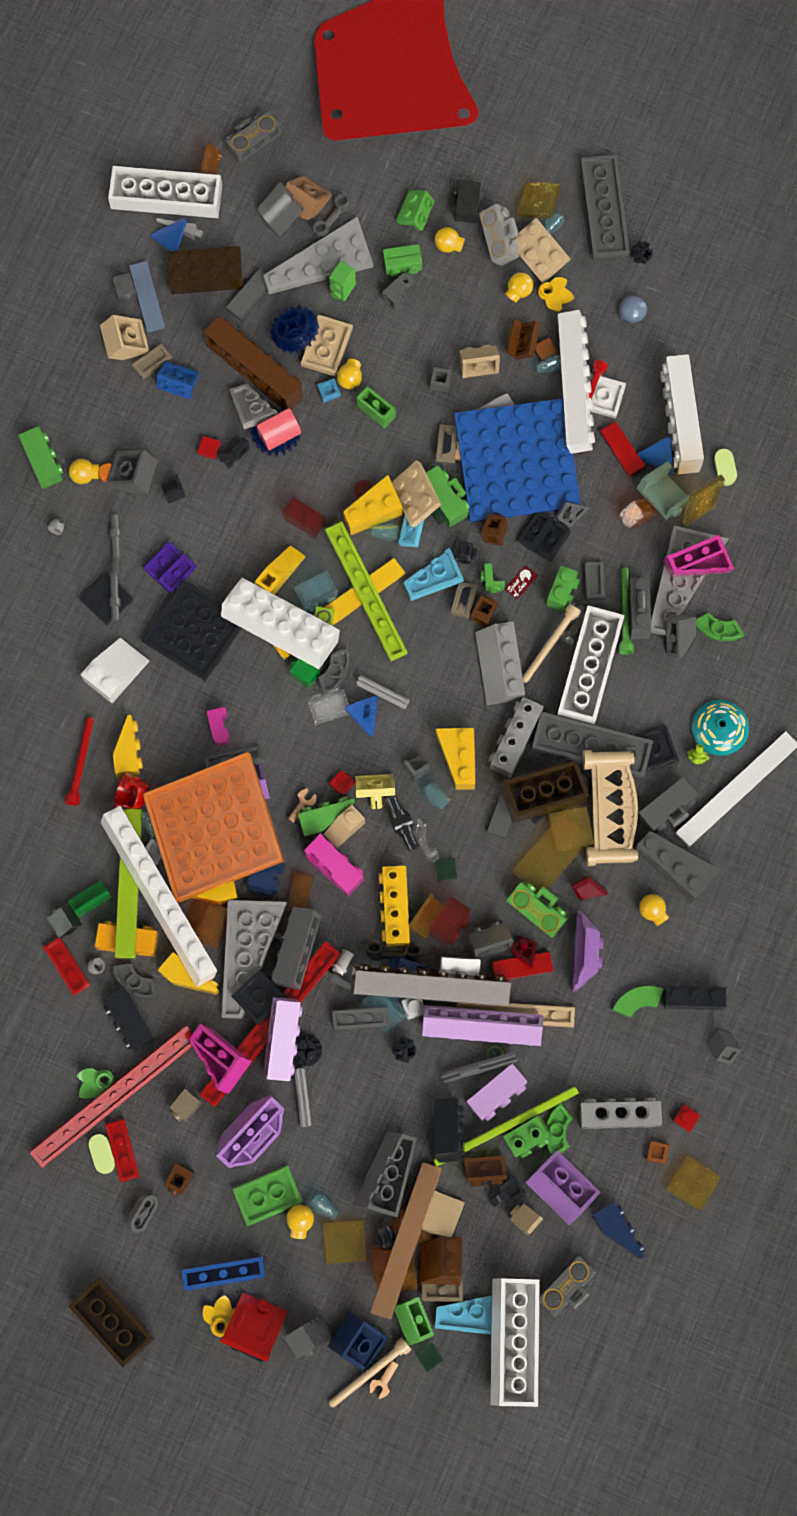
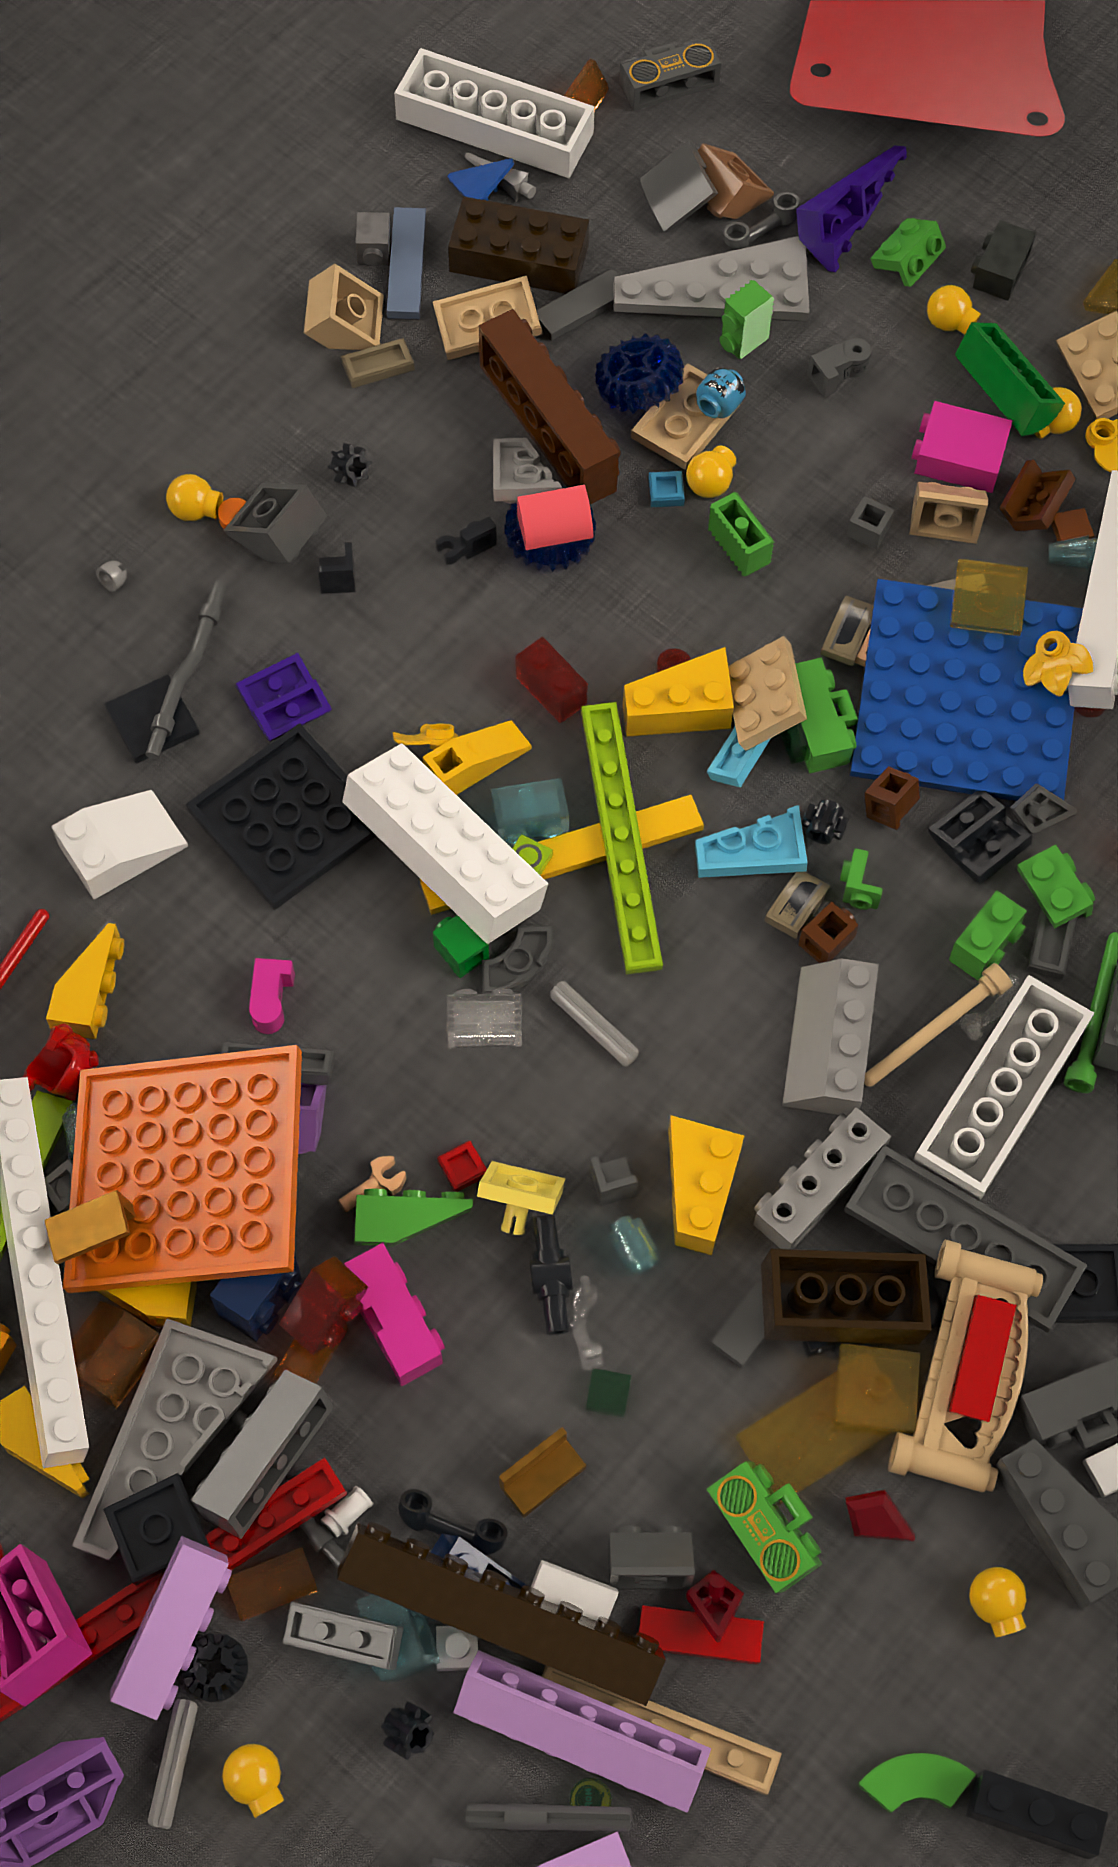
camera: 15 degrees right, 10 degrees down
(41, 457) = (130, 457): bright green brick -> none
(159, 427) = (349, 464): none -> black gear
(177, 379) = (408, 400): blue bracket -> none
(179, 869) = (89, 1226): none -> pearl gold panel
(197, 317) = (463, 313): none -> tan tile
(209, 447) = (425, 523): red tile -> none
(253, 566) = (430, 734): none -> yellow plate
(302, 871) = (324, 1306): none -> clear red brick
(320, 1005) = (271, 1584): none -> clear orange slope
(341, 329) = (720, 393): none -> dark azure head
(341, 1092) = (253, 1778): none -> yellow piece
(344, 826) = (439, 1248): tan slope -> none
(364, 713) = (546, 1051): blue piece -> none
(374, 193) = (840, 210): none -> dark purple wedge
(386, 532) = (691, 746): clear light blue cone -> none
(395, 905) = (485, 1434): yellow brick -> none
(402, 260) = (862, 317): bright green brick -> none
(449, 922) = (581, 1497): clear red brick -> none
(475, 320) = (961, 446): none -> dark pink brick
(489, 274) = (1008, 378): none -> green brick
(499, 234) = (1041, 320): light grey piece -> none
(514, 408) = (989, 597): none -> clear yellow tile
(521, 582) = (913, 905): dark red sticker -> none
(558, 437) = (1056, 666): none -> yellow plate
(586, 951) = (838, 1644): medium lavender wedge -> none
(589, 553) = (1056, 887): none -> bright green bracket
(616, 800) = (982, 1358): none -> red tile

